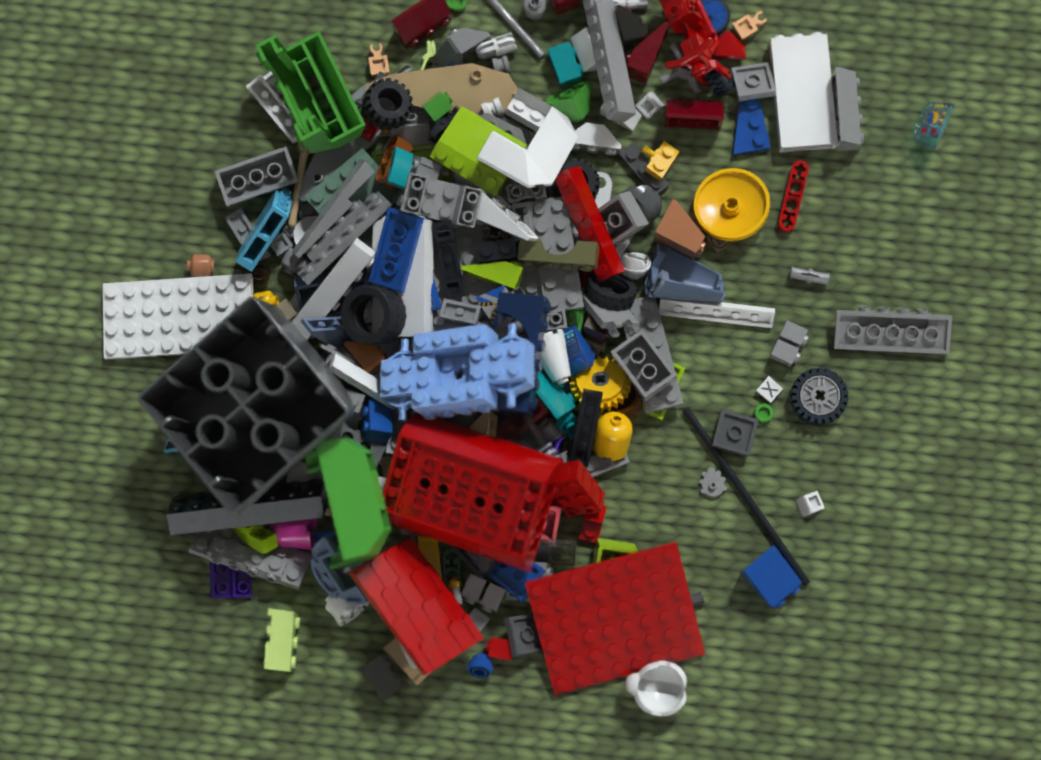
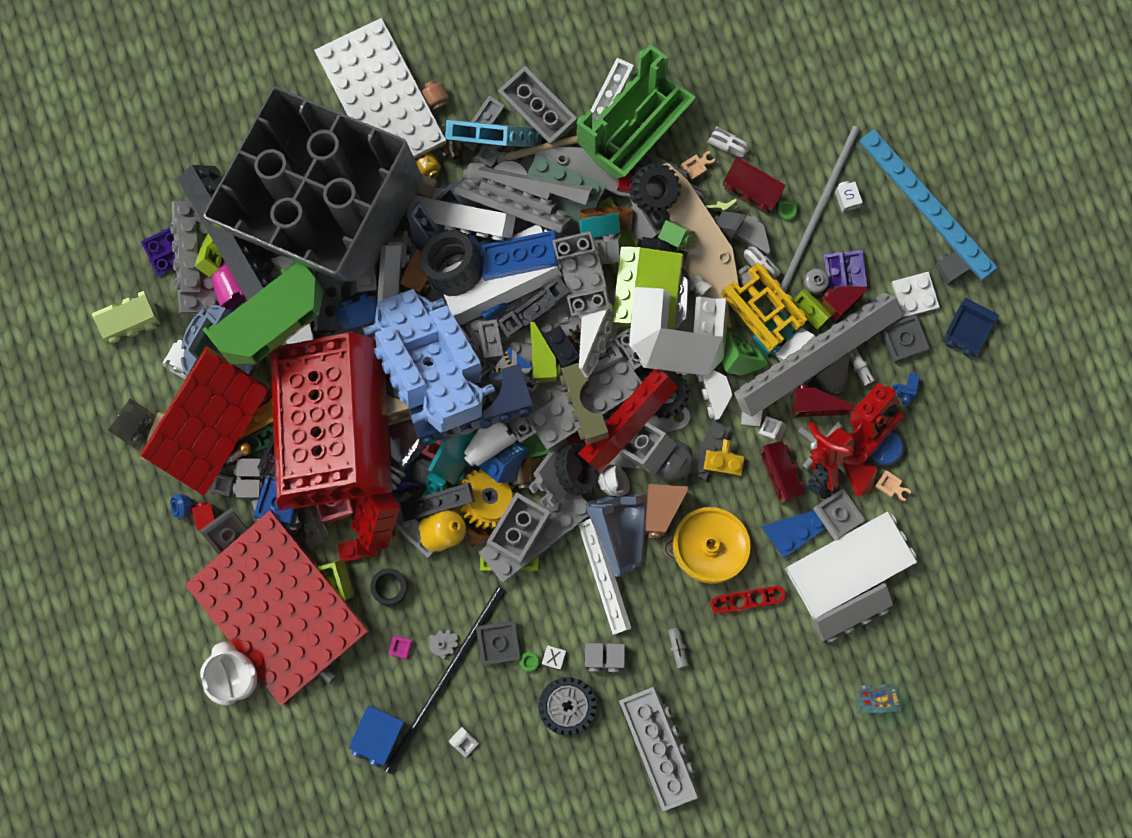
camera: 60 degrees right, 0 degrees up
(370, 24) = (728, 142): none -> white arm
(542, 73) = (753, 316): none -> yellow fence
(557, 22) = (814, 311): none -> lime plate
(640, 494) = (374, 587): none -> black tyre
(699, 522) = (400, 647): none -> dark pink tile

